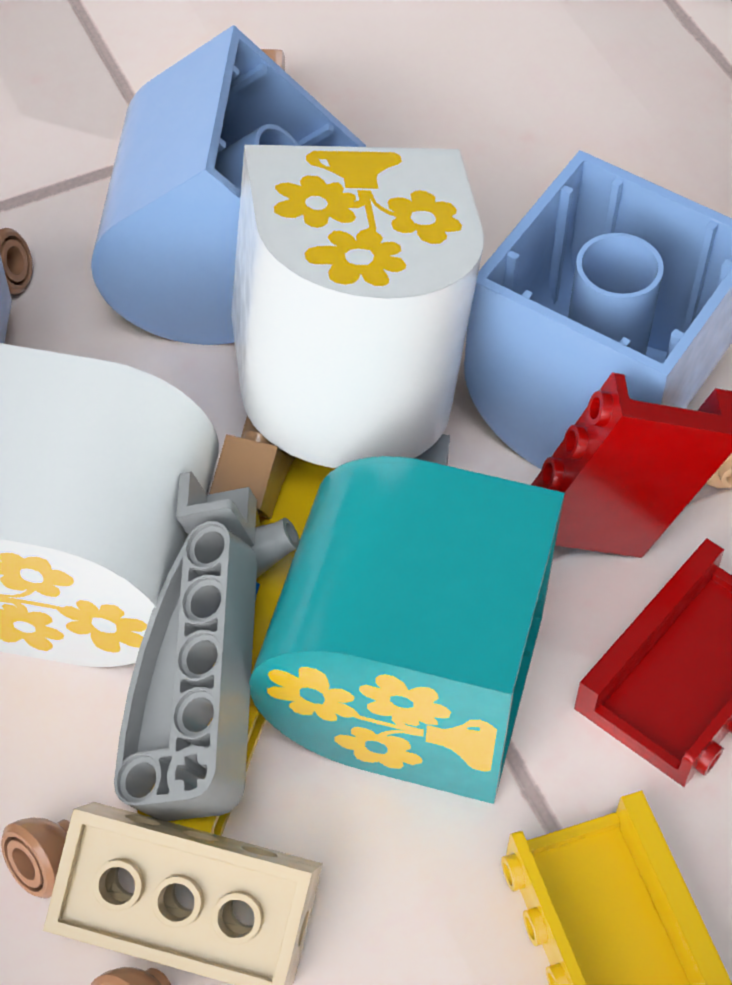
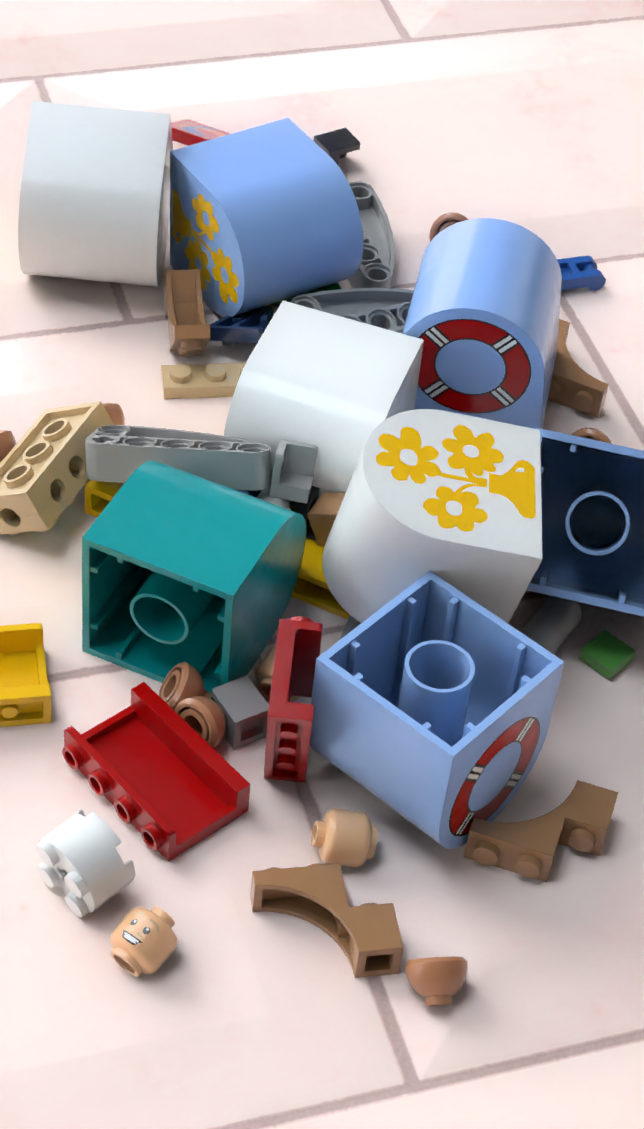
camera: 95 degrees right, 10 degrees down
(561, 652) = (181, 683): none -> nougat brick
(580, 573) = (244, 710): none -> light grey panel
(603, 614) = (204, 717): none -> nougat brick

